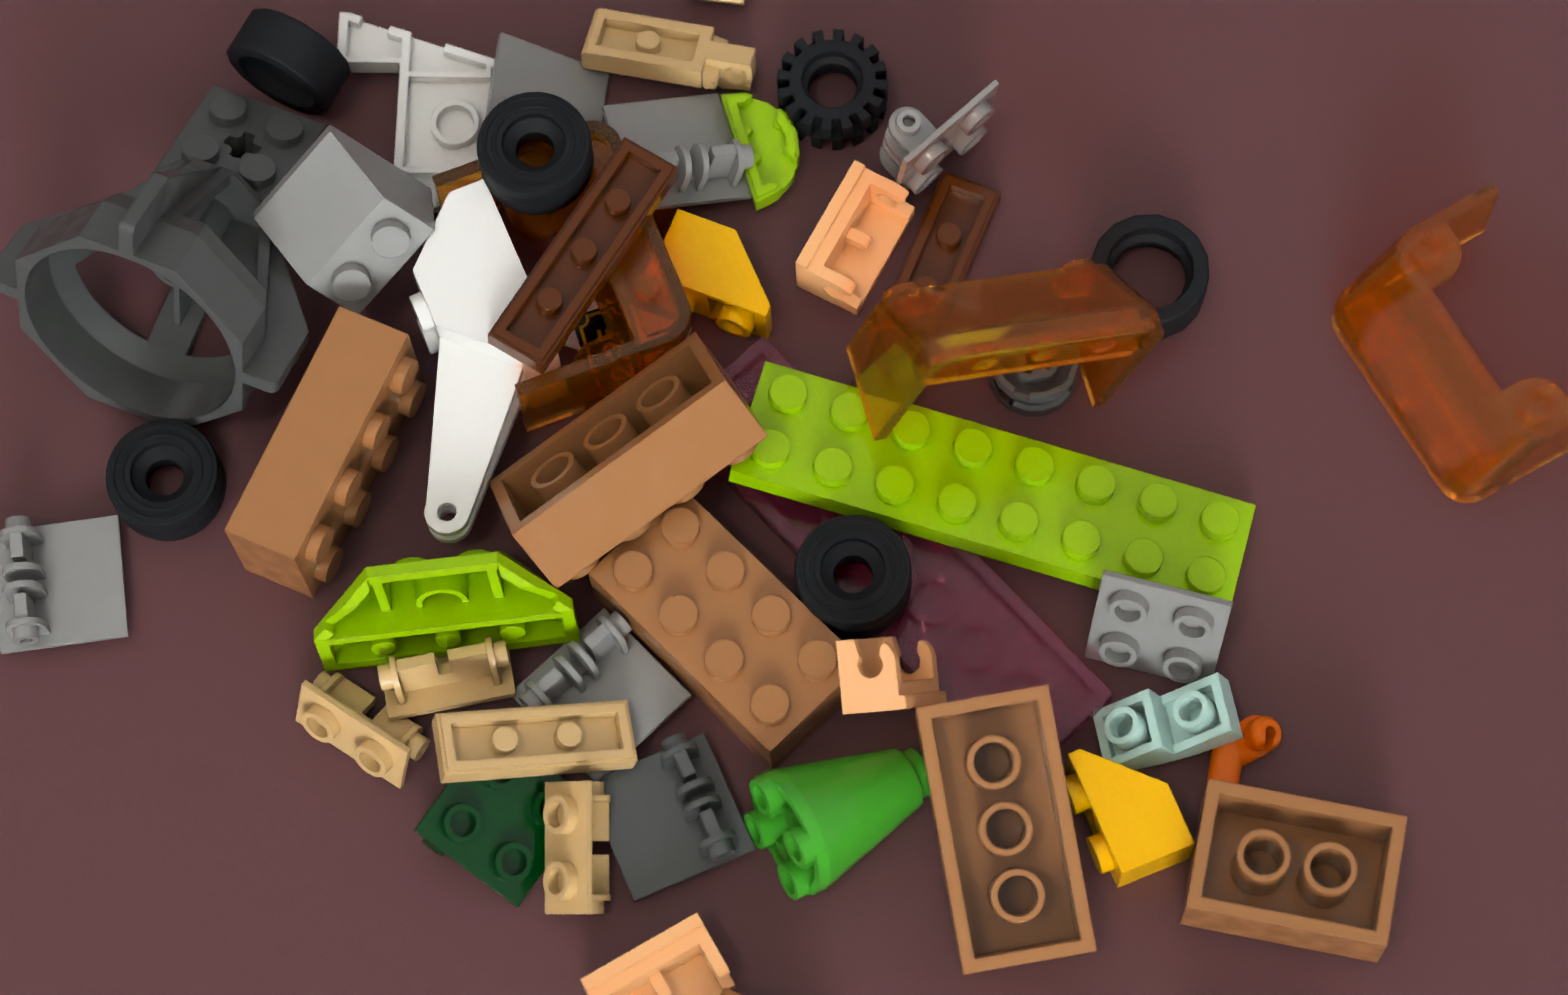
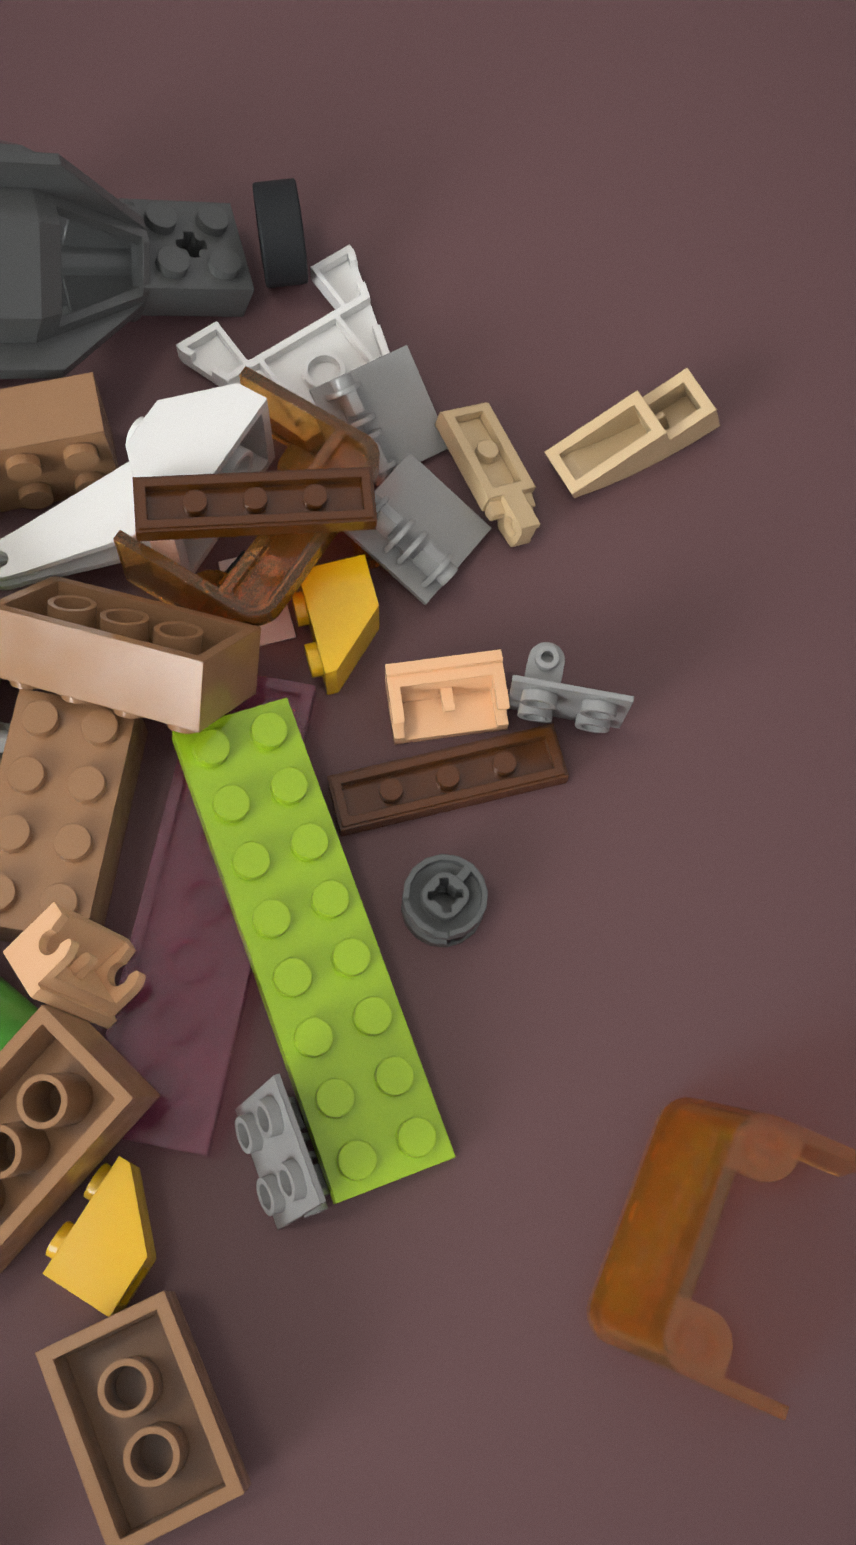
camera: 45 degrees right, 0 degrees up
(346, 219) = (171, 335): light grey slope -> none
(526, 119) = (309, 383): black tyre -> none
(772, 142) = (474, 588): lime plate -> none
(838, 57) = (558, 571): black tyre -> none
(862, 541) = (133, 856): black tyre -> none
(1000, 328) = (426, 852): clear orange windscreen -> none
(1169, 727) = (214, 1219): light aqua slope -> none
(1171, 237) = (616, 902): black tyre -> none
(1259, 737) = (235, 1289): orange arm -> none

